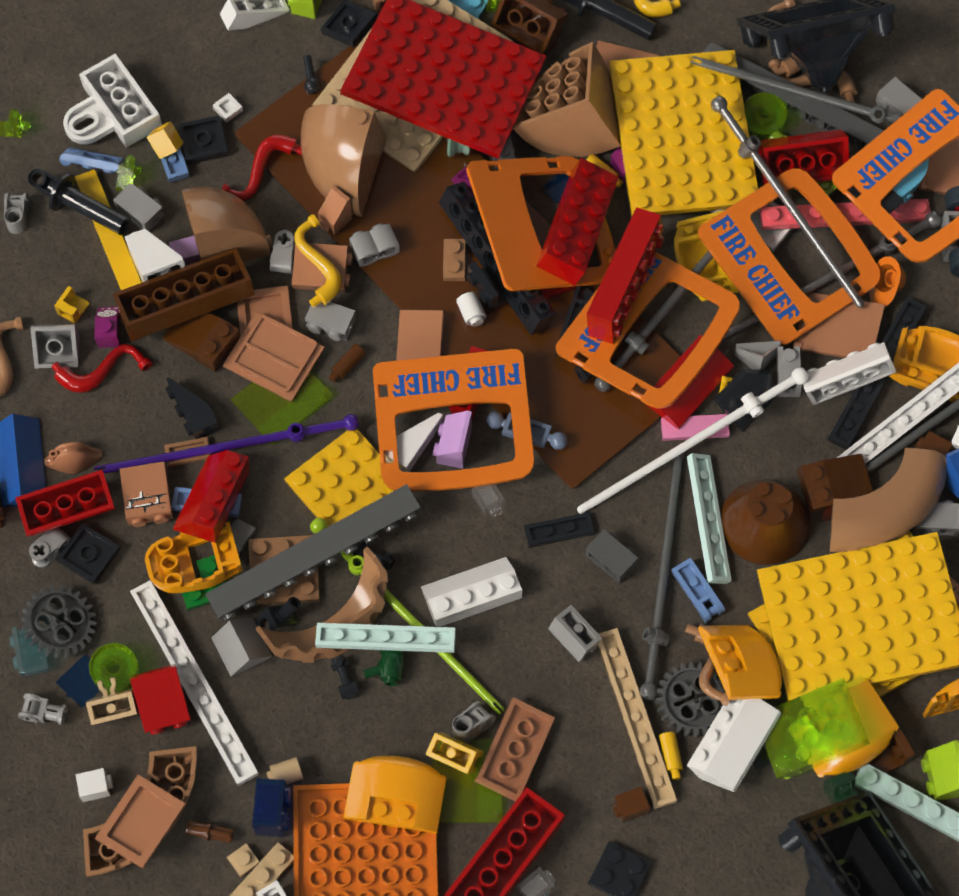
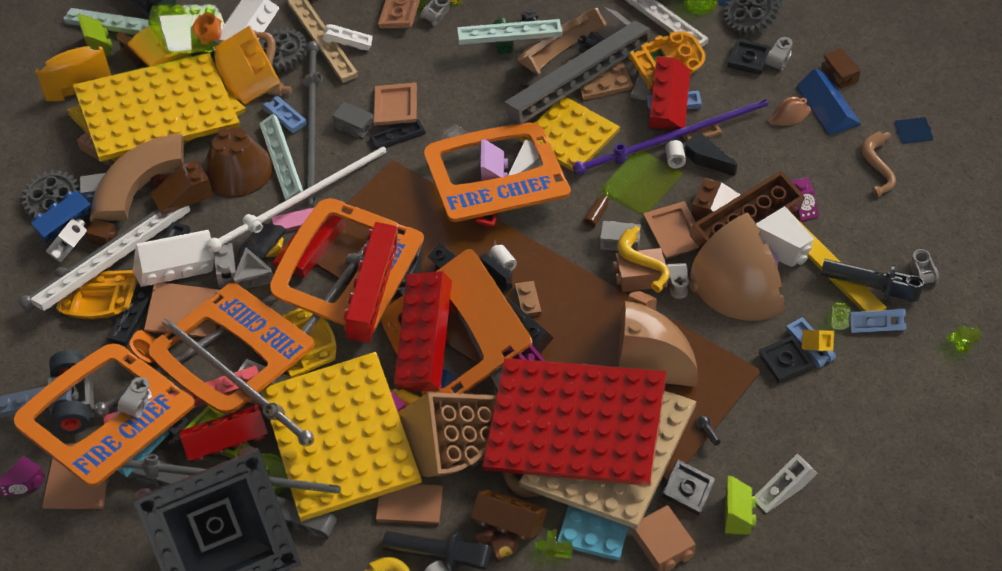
camera: 170 degrees right, 15 degrees down
(54, 345) = (839, 180): light grey slope -> none
(65, 503) = (776, 71): red slope -> none
(70, 305) = (840, 208): yellow panel -> none
(88, 382) = (803, 159): red animal -> none
(114, 104) = (877, 369): white brick -> none
(139, 207) = (817, 290): light grey brick -> none
(146, 494) = (721, 94): nougat brick -> none
(227, 107) = (775, 391): white plate -> none
(231, 418) = (675, 154): none -> white brick
(274, 142) = (716, 358): red animal -> none
(274, 356) = (658, 203): nougat piece -> none
(319, 524) = (580, 98): lime bar -> none
(374, 244) = (600, 292): light grey brick -> none
(420, 334) = (540, 233): nougat tile -> none
(472, 592) = (455, 82): white slope -> none
(539, 431) = (426, 183): sand blue plate -> none
(553, 572) = (395, 104): none -> nougat piece
(575, 633) = (374, 67): light grey brick -> none
(598, 695) = (347, 37): none -> white plate
(671, 754) = (291, 20): yellow cylinder -> none
(786, 711) = (207, 28): none -> orange helmet
(893, 173) = (135, 398): none -> light grey piece
(897, 97) = (125, 513): light grey brick -> none

